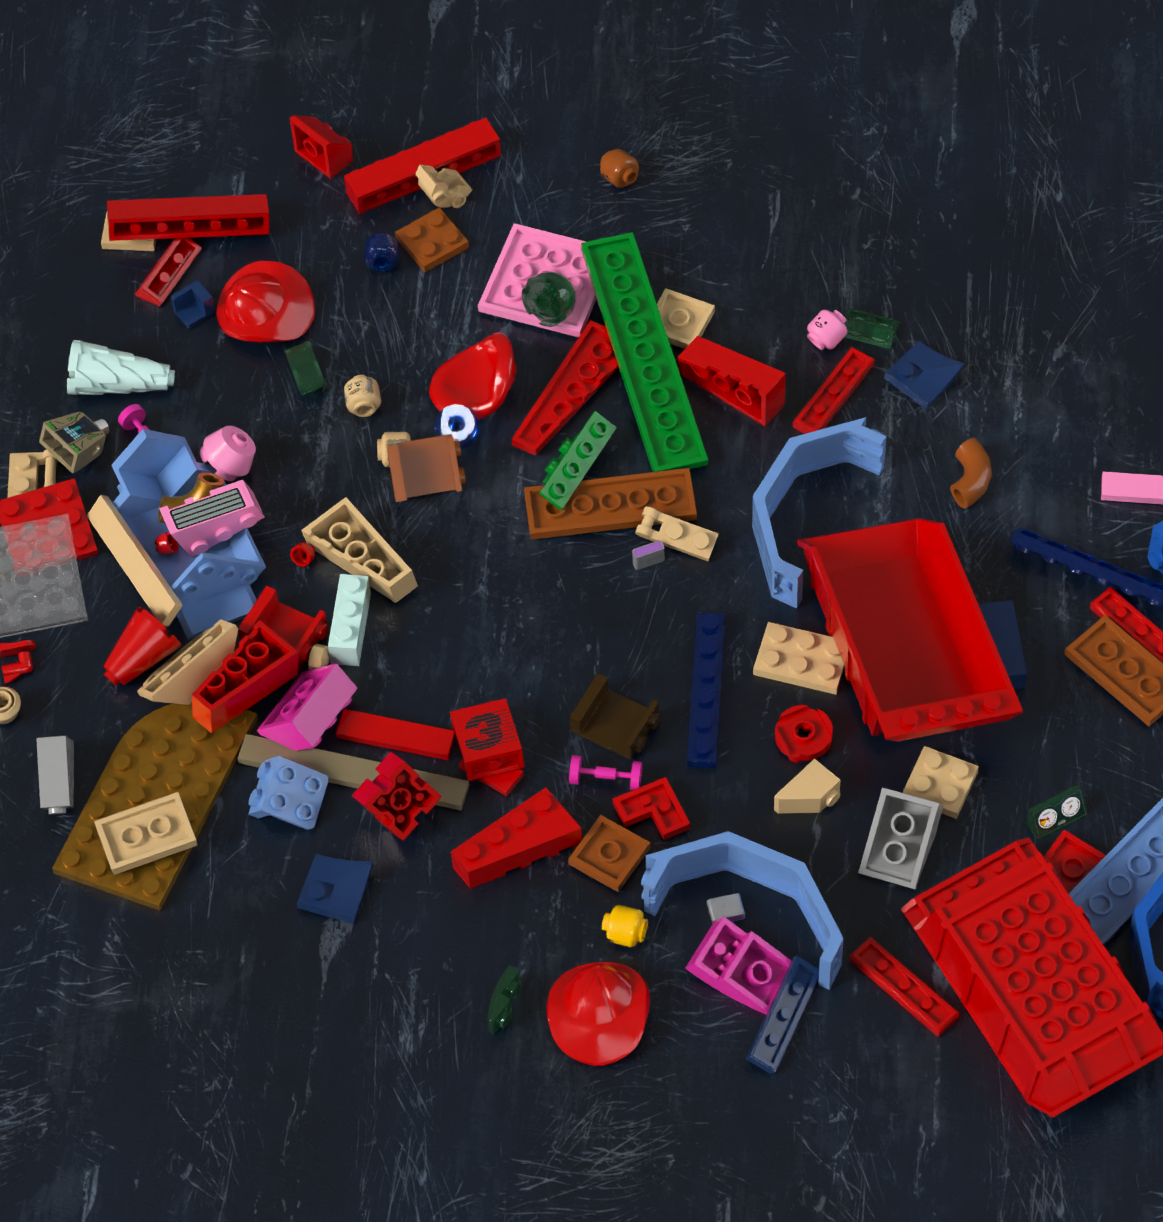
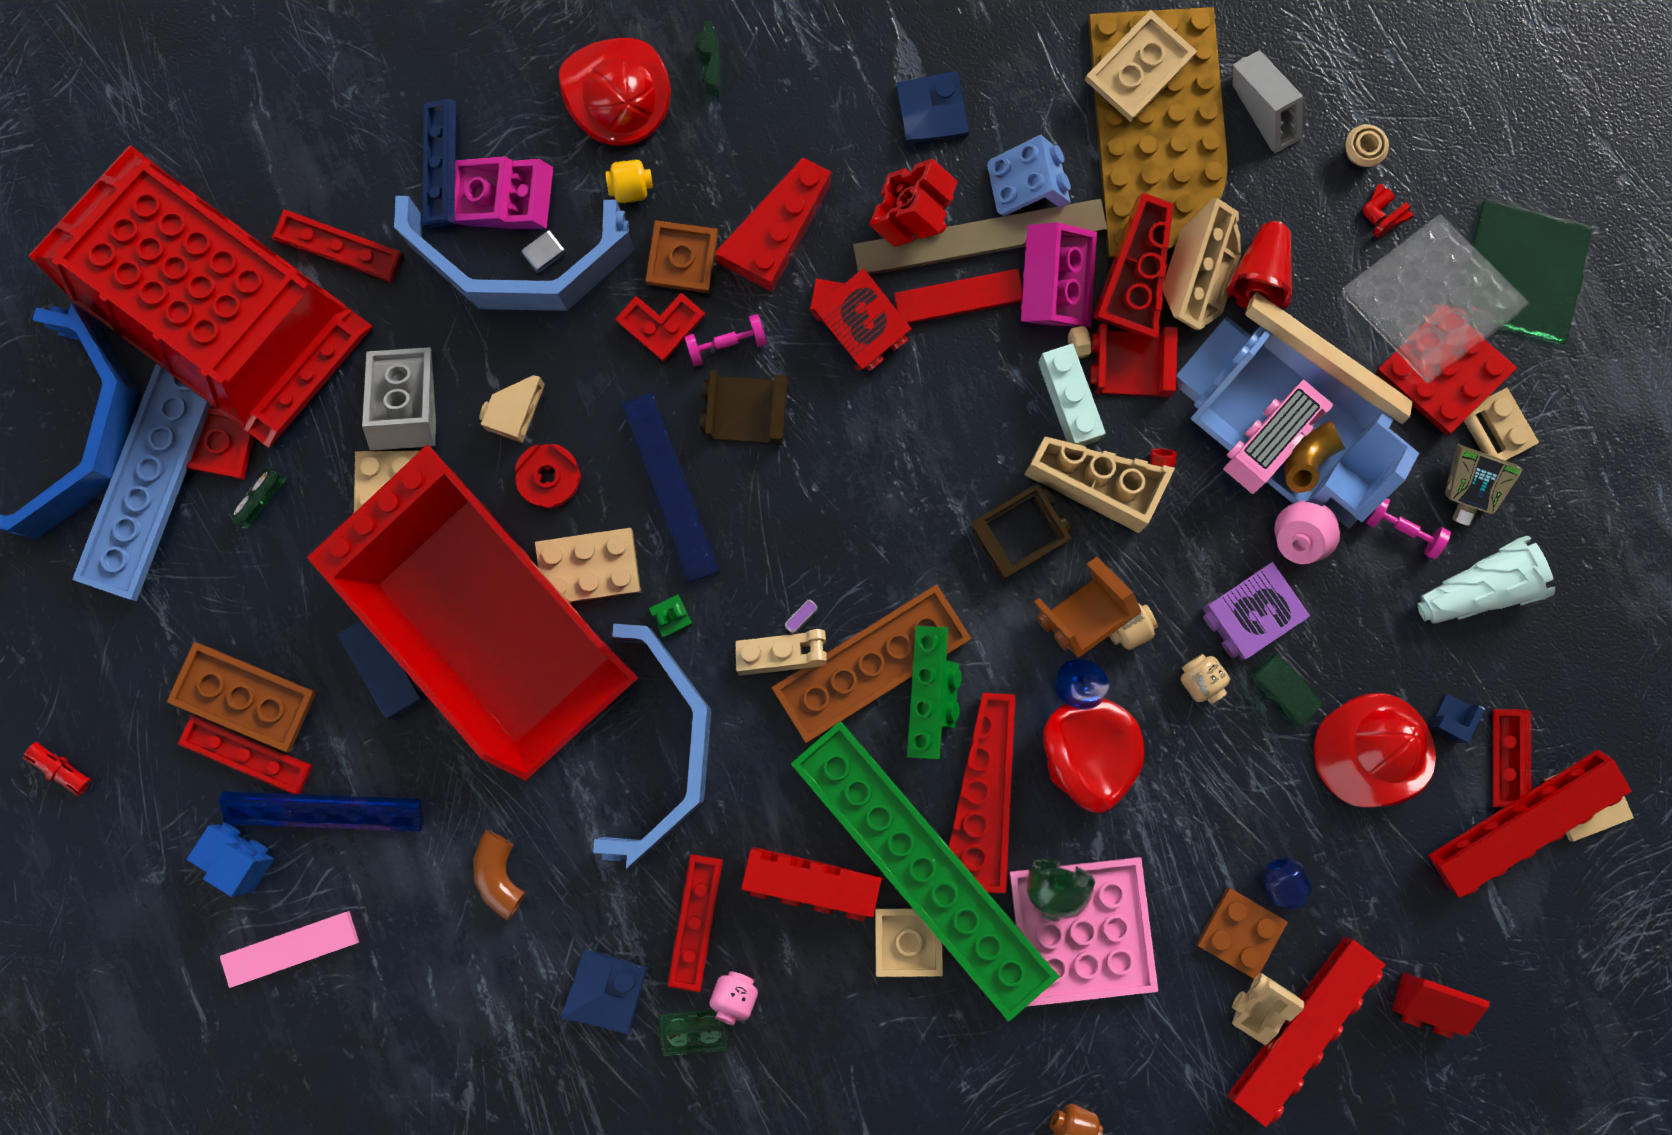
camera: 150 degrees right, 25 degrees up
(297, 420) = (1255, 613): none -> medium lavender panel
(439, 525) = (1043, 501): none -> dark brown window
(752, 598) = (670, 616): none -> green tile

